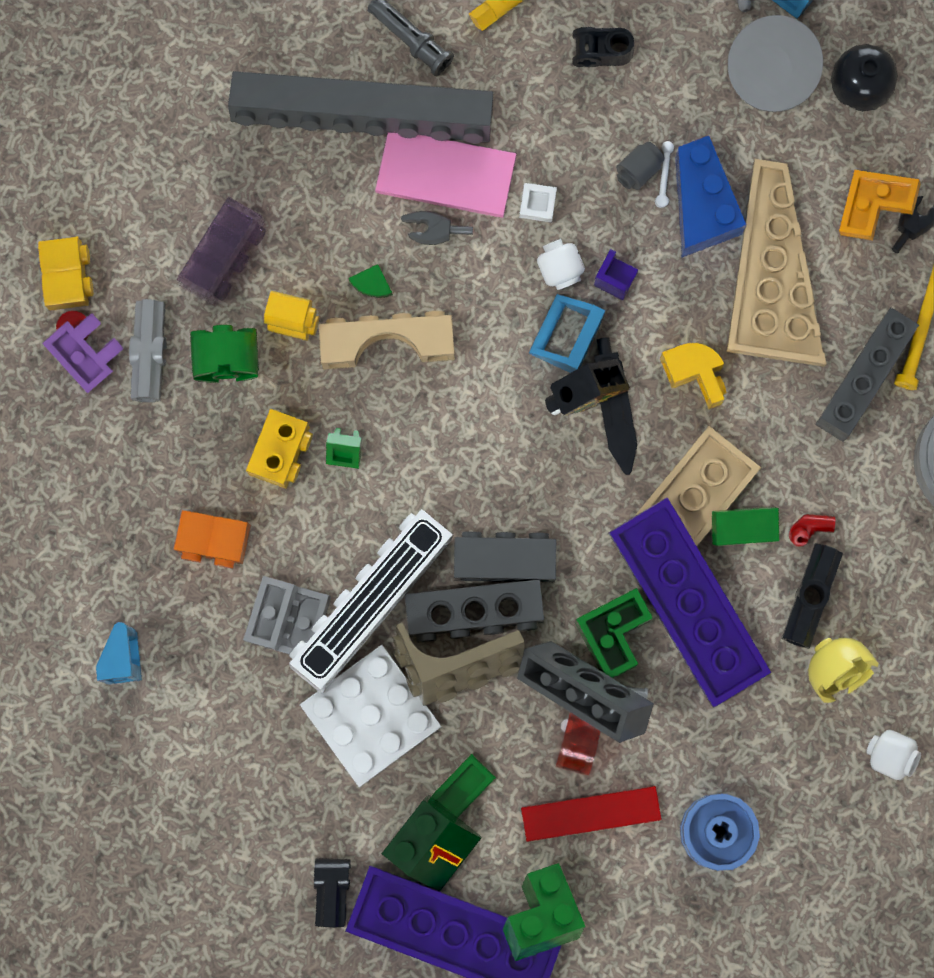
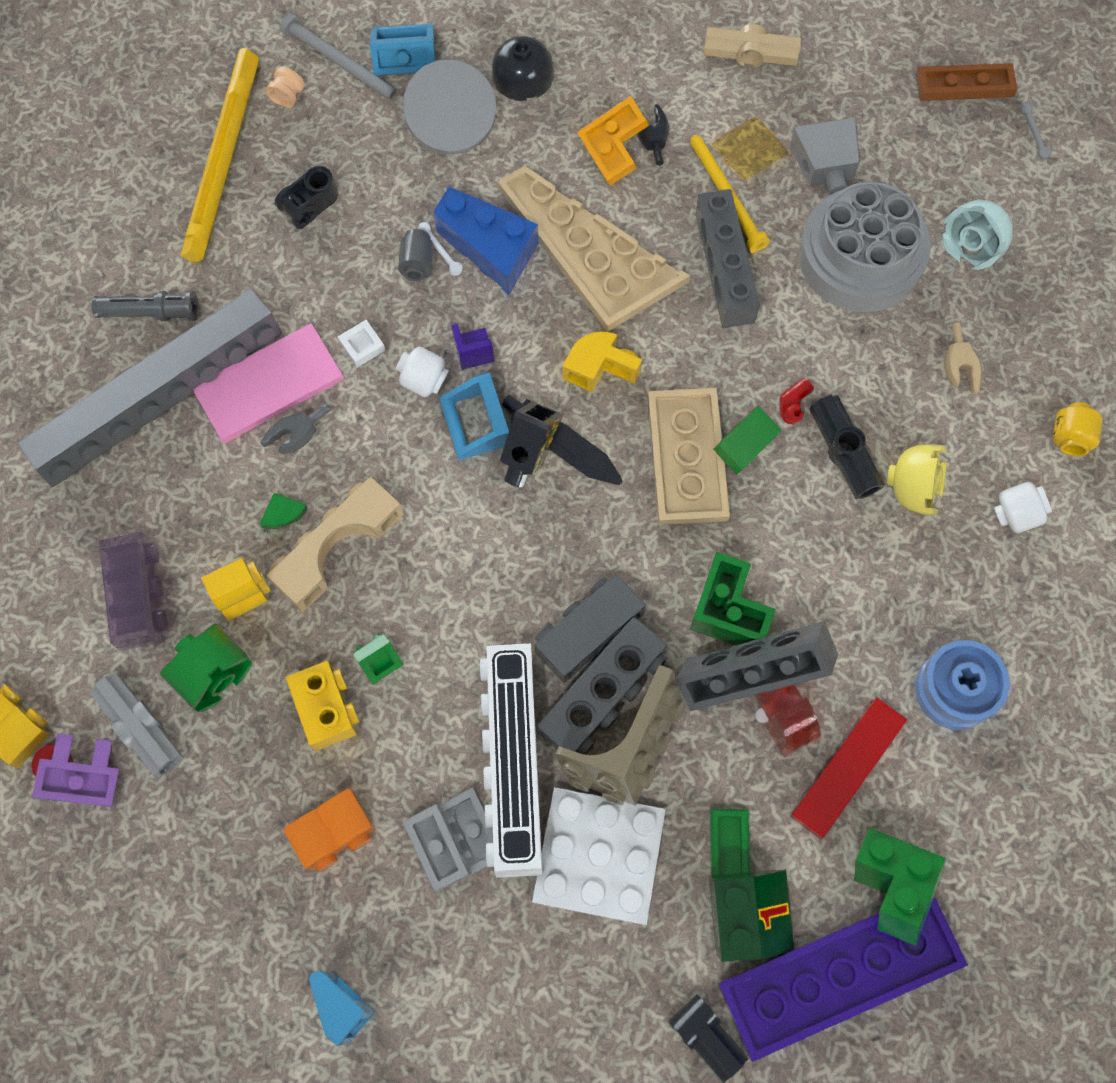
camera: 45 degrees left, 10 degrees down
(689, 602) = (764, 530): dark purple plate -> none

